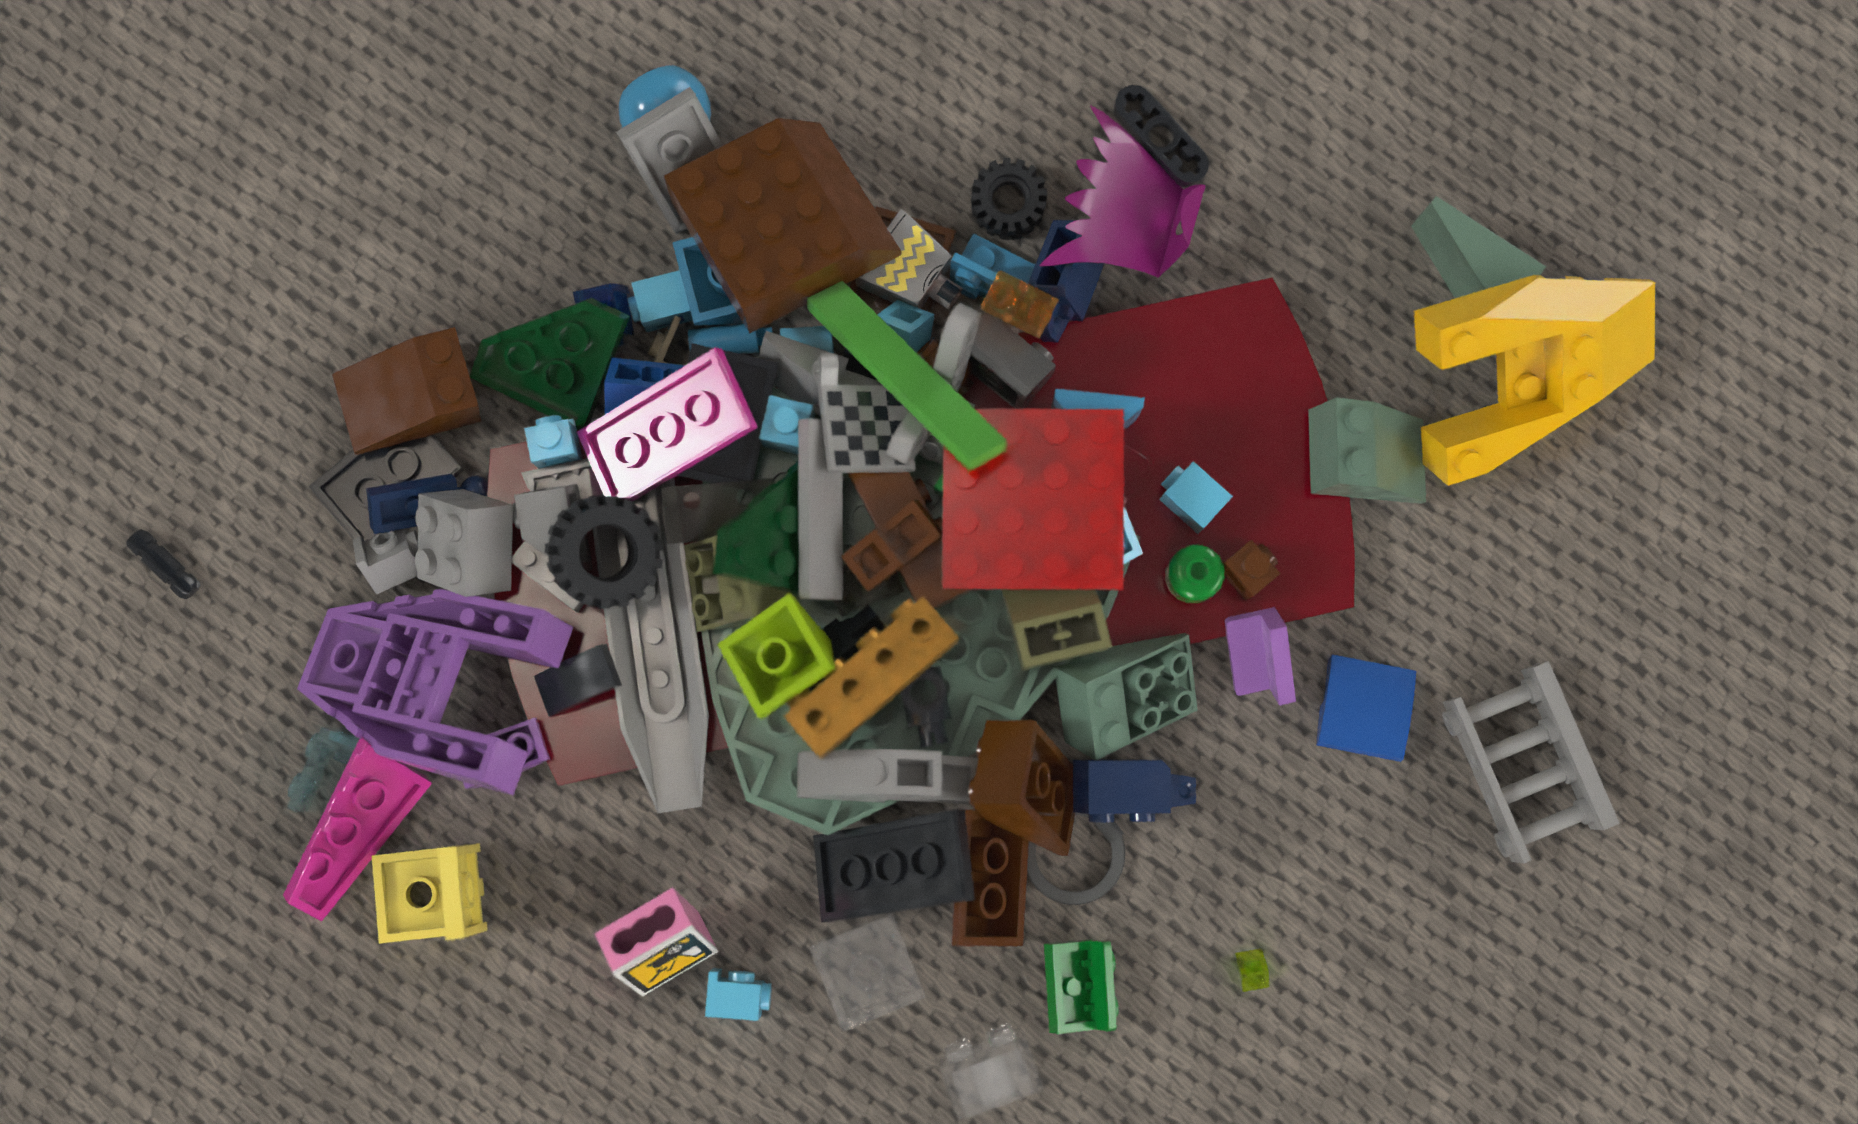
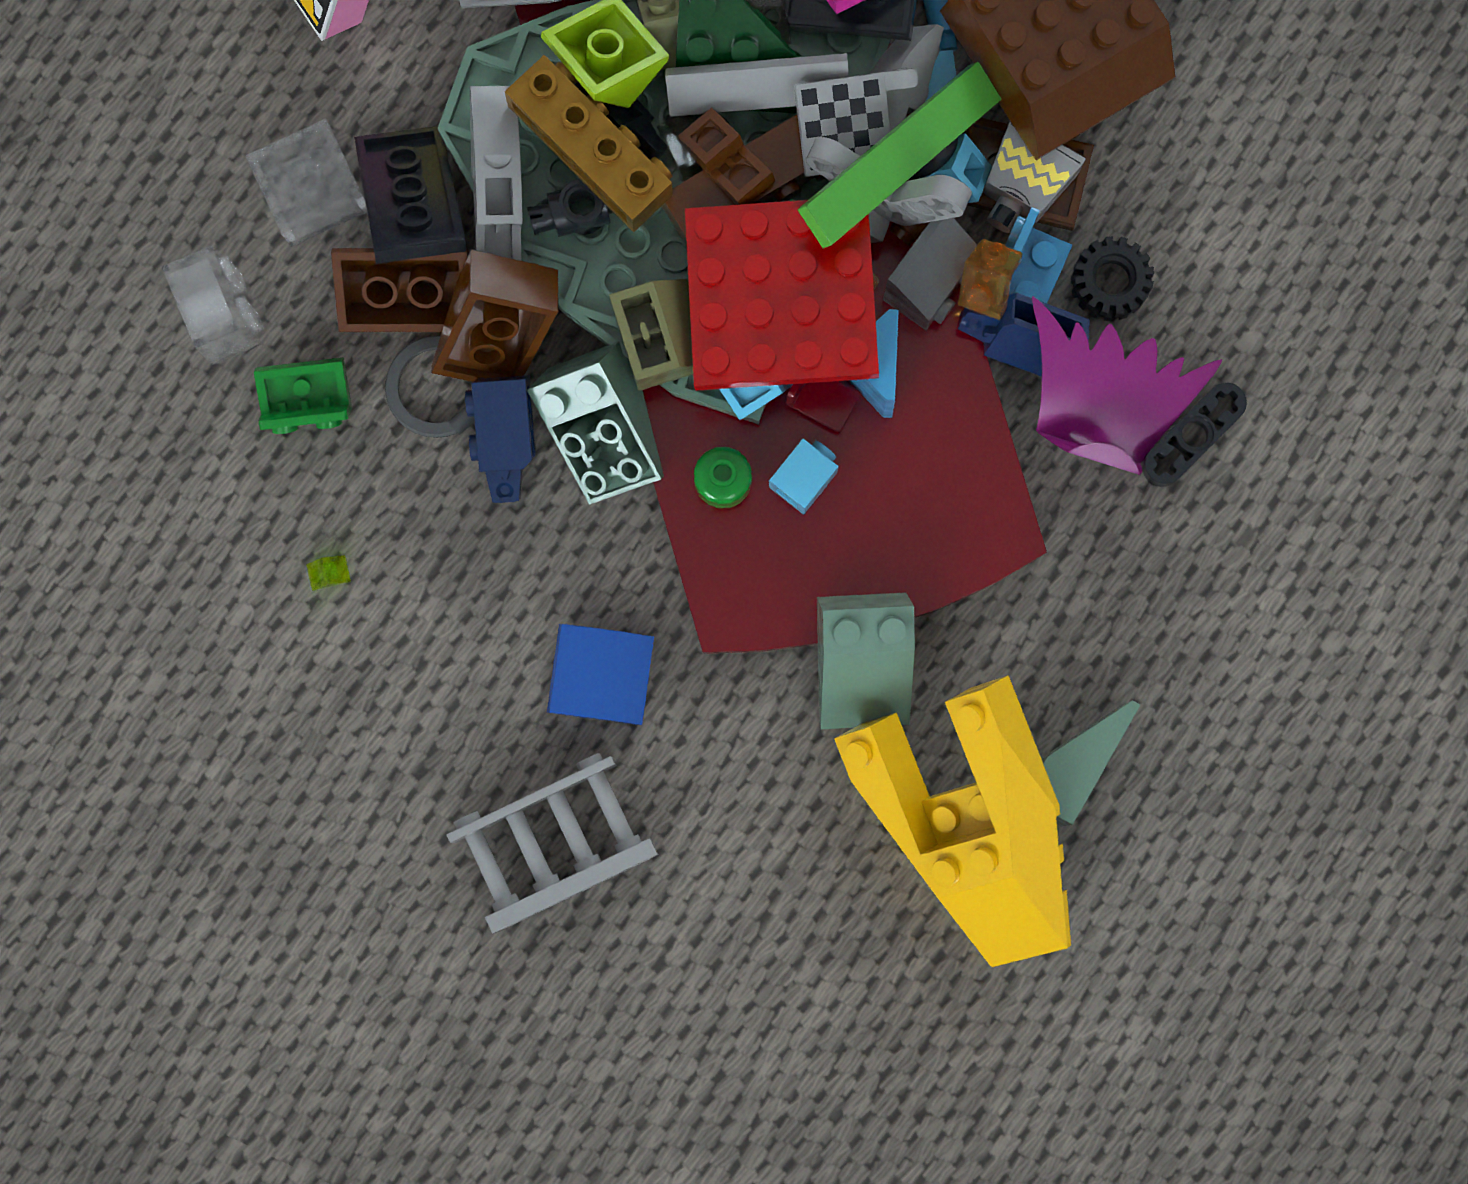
camera: 90 degrees right, 0 degrees up
(737, 995) = (278, 59): medium azure brick -> none
(781, 423) = (849, 39): medium azure brick -> none
(1251, 569) = (733, 536): reddish brown brick -> none
(1260, 654) = (647, 557): medium lavender panel -> none

